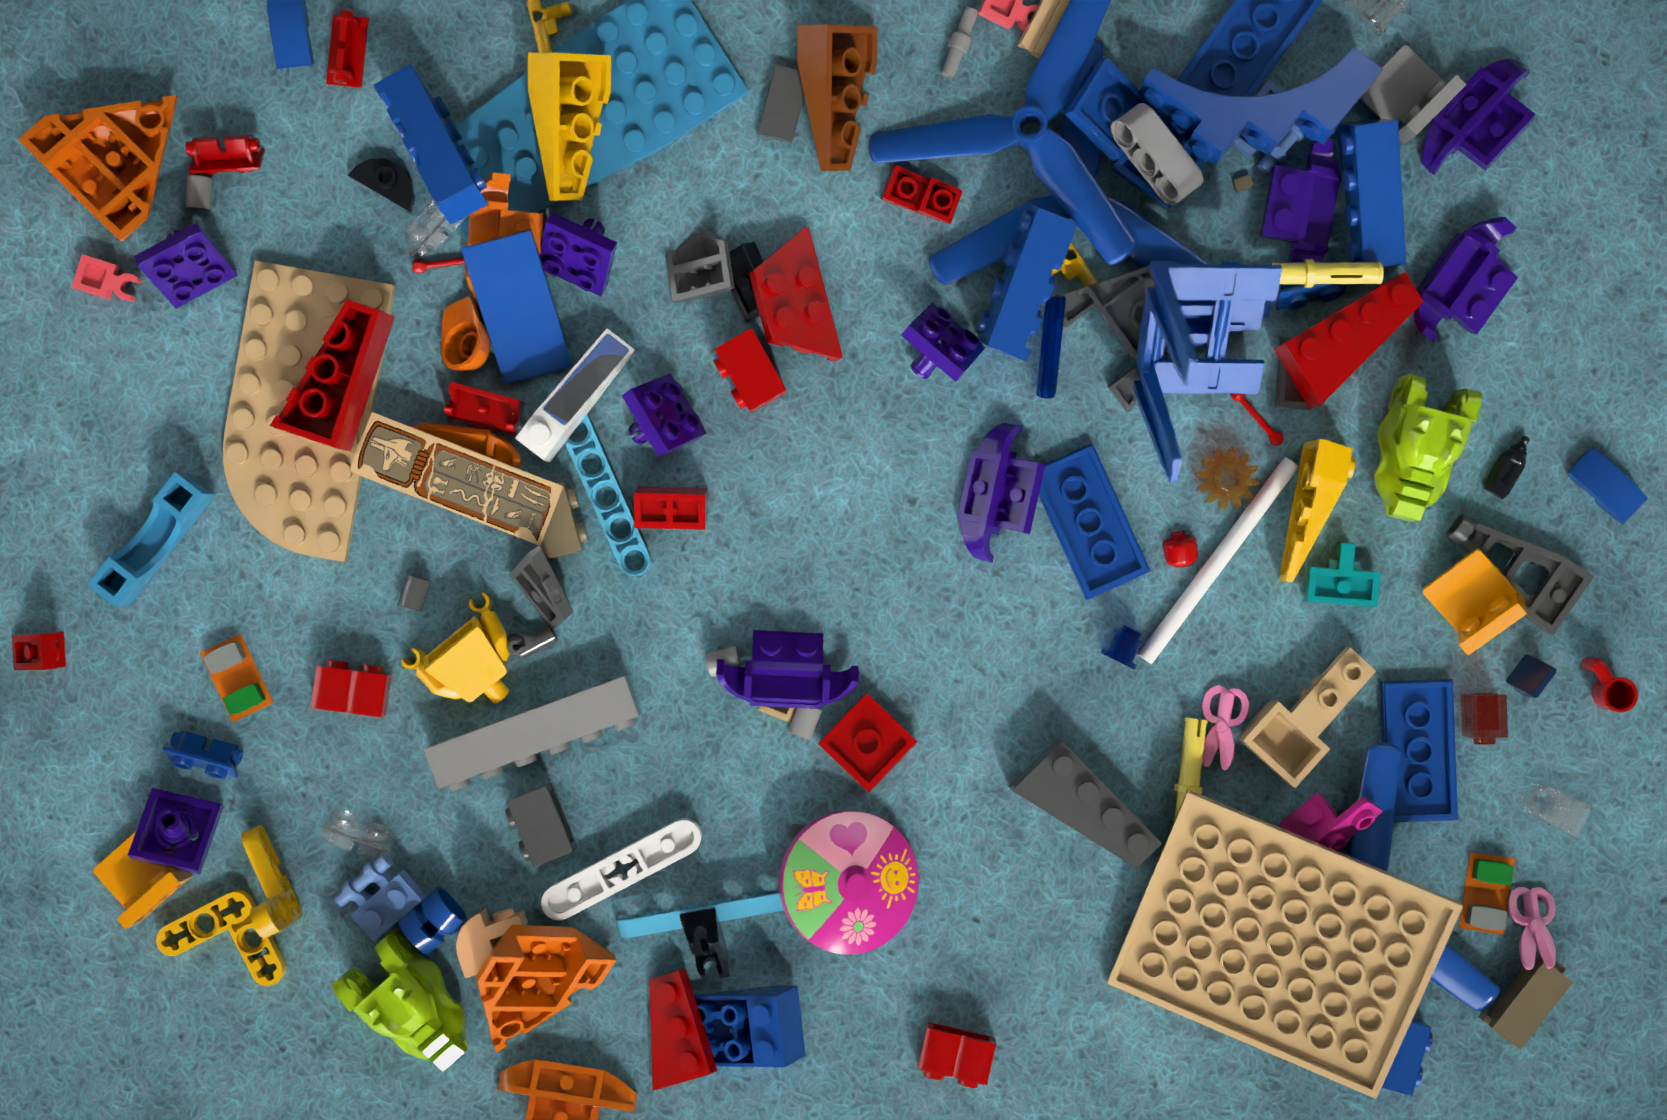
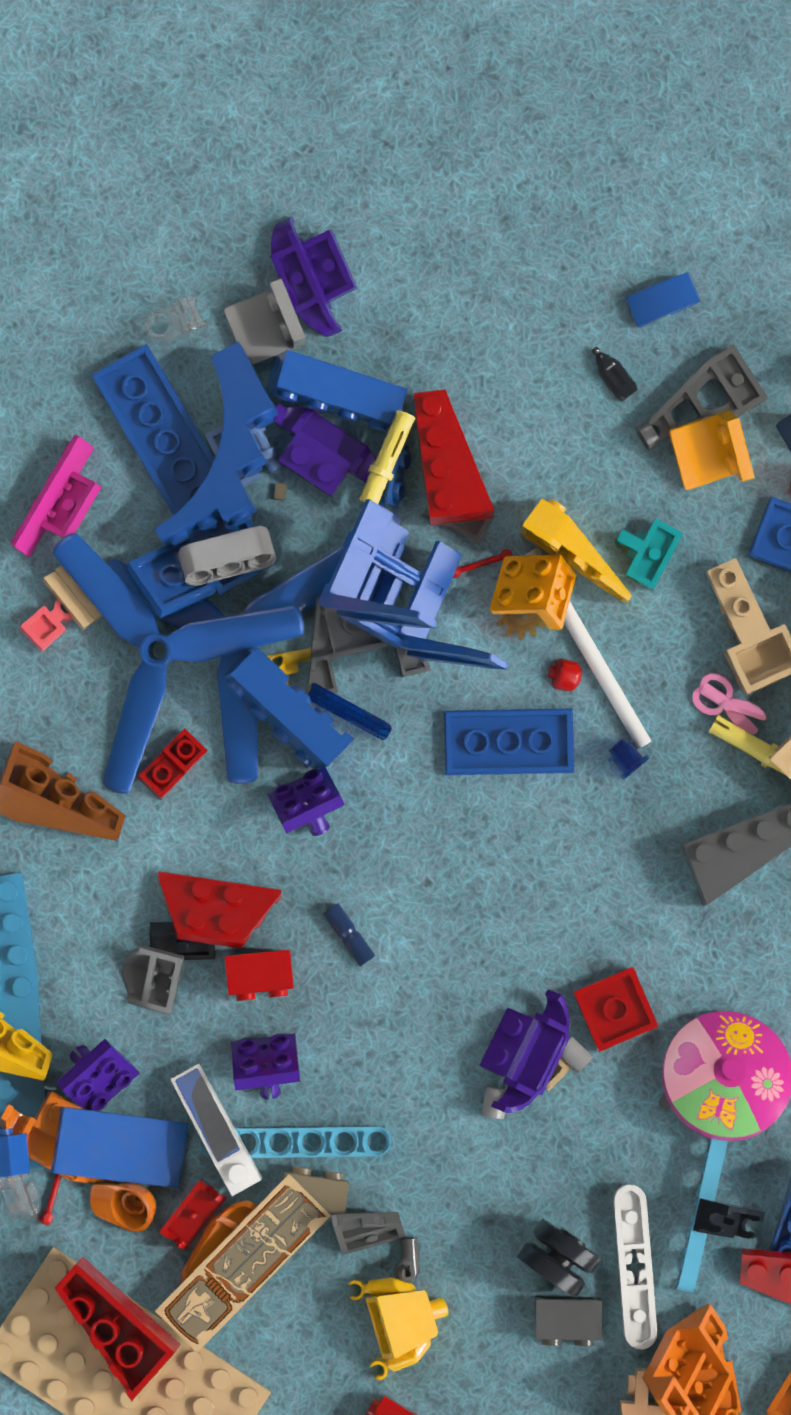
camera: 75 degrees left, 5 degrees down
(414, 592) = (323, 1343): dark grey hinge -> none
(532, 732) = (486, 1291): light grey brick -> none
(593, 790) = (559, 1257): none -> black wheel
(670, 507) = (345, 1090): red hinge -> none
(782, 105) = (45, 848): dark grey tile -> none
(830, 440) = (351, 938): none -> dark blue piece
(959, 42) = (59, 677): light grey bar -> none
(997, 491) = (450, 808): dark purple plate -> none
(1261, 480) = (535, 586): none -> light orange bracket
(1420, 446) = (565, 443): lime animal -> none
(1466, 279) = (442, 343): dark purple plate -> none

